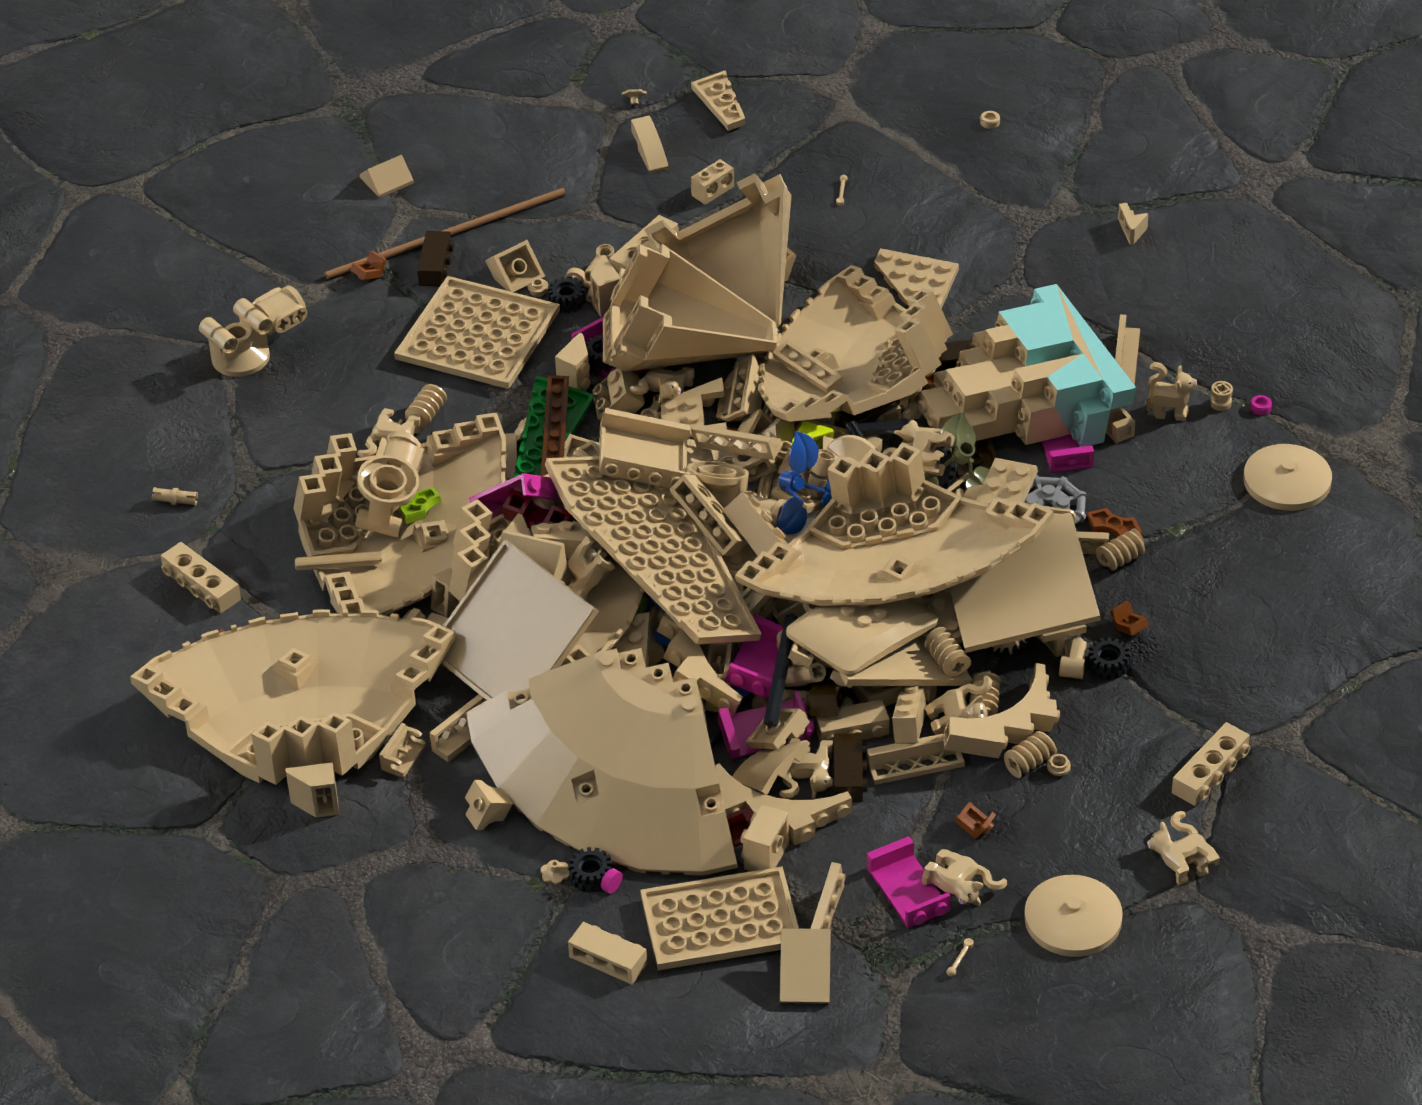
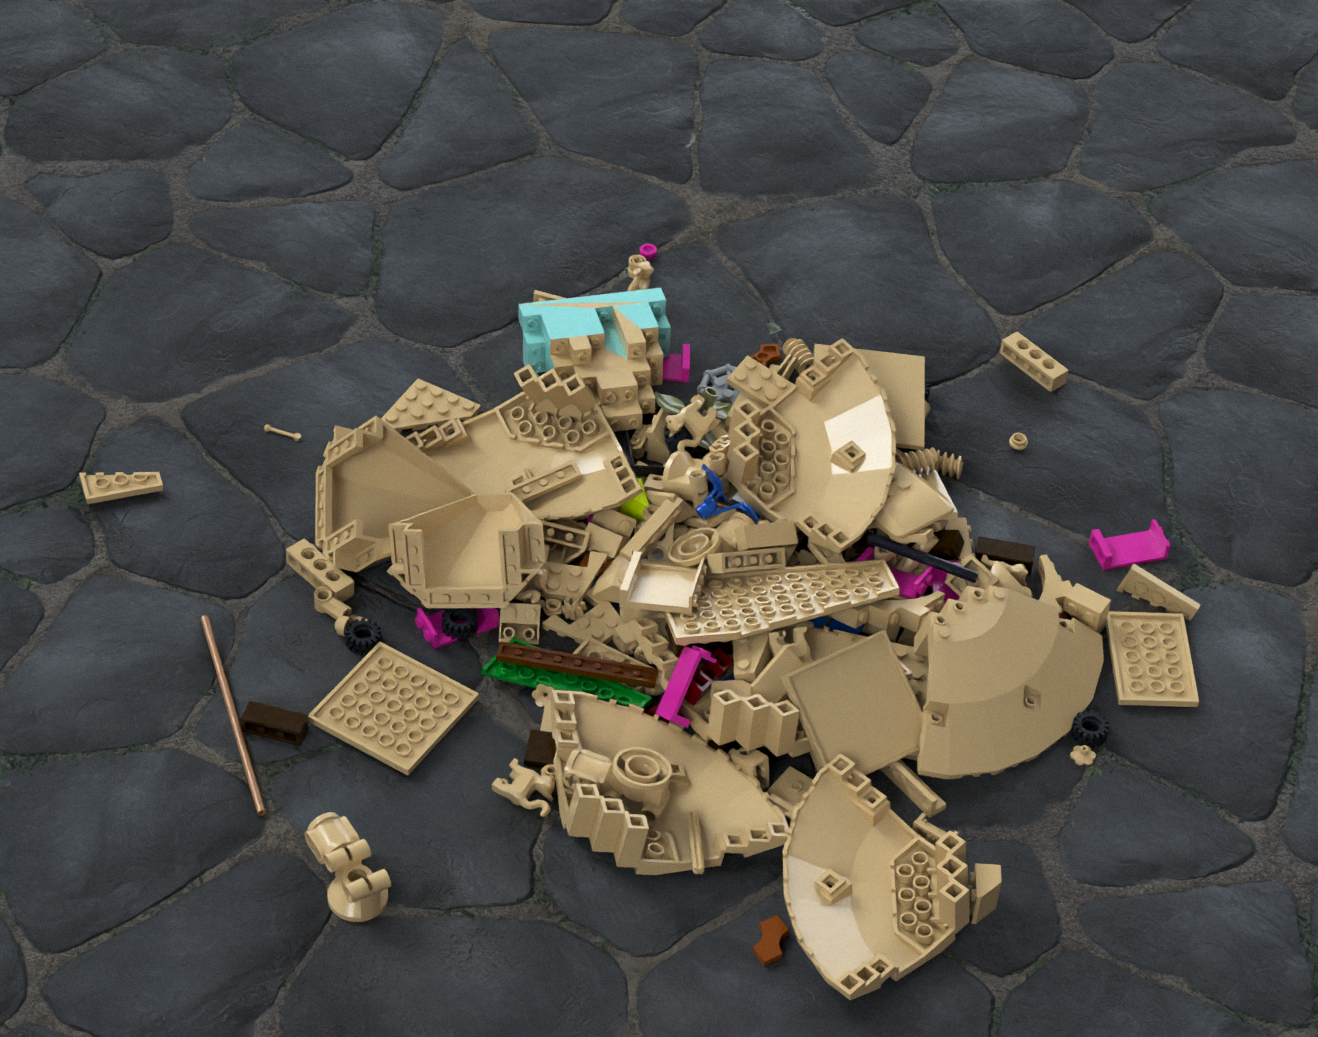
camera: 85 degrees left, 0 degrees up
(174, 496) = (558, 966): tan pin -> none
(200, 577) = (681, 955): tan brick -> none
(371, 268) = (268, 774): dark orange bracket -> none
(388, 176) = (122, 745): tan slope -> none
(426, 404) = (491, 758): tan piece -> none
(486, 804) = (1014, 781): tan brick -> none
(515, 267) = (309, 665): tan slope -> none
(538, 287) = (341, 656): tan plate -> none
(574, 362) = (478, 637): tan slope -> none
(602, 284) = (375, 601): tan slope -> none
(607, 952) = (1181, 730): tan brick -> none
(611, 880) = (1108, 713): dark pink tile -> none
(634, 94) = (83, 543): tan plant -> none
(649, 144) = (166, 543): tan slope -> none
(712, 181) = (243, 509): tan brick -> none
(805, 966) = (1214, 613): tan tile -> none
(893, 755) = (992, 512): tan fence -> none
(909, 714) = (973, 503): tan brick -> none
(954, 705) = (961, 479): tan animal -> none
(958, 877) = (1129, 516): tan animal -> none
(968, 944) = (1187, 527): tan hinge -> none
(974, 821) = (1073, 495): dark orange bracket -> none
(990, 119) = (224, 322): tan tile -> none
(991, 734) = (981, 450): tan arch -> none
(1029, 753) = (1009, 452): tan piece -> none
(1073, 915) = (1167, 466): tan dish -> none
(1132, 224) = (407, 269): tan slope -> none
(1184, 851) = (1117, 394): tan animal -> none
(1287, 477) = (734, 257): tan dish -> none

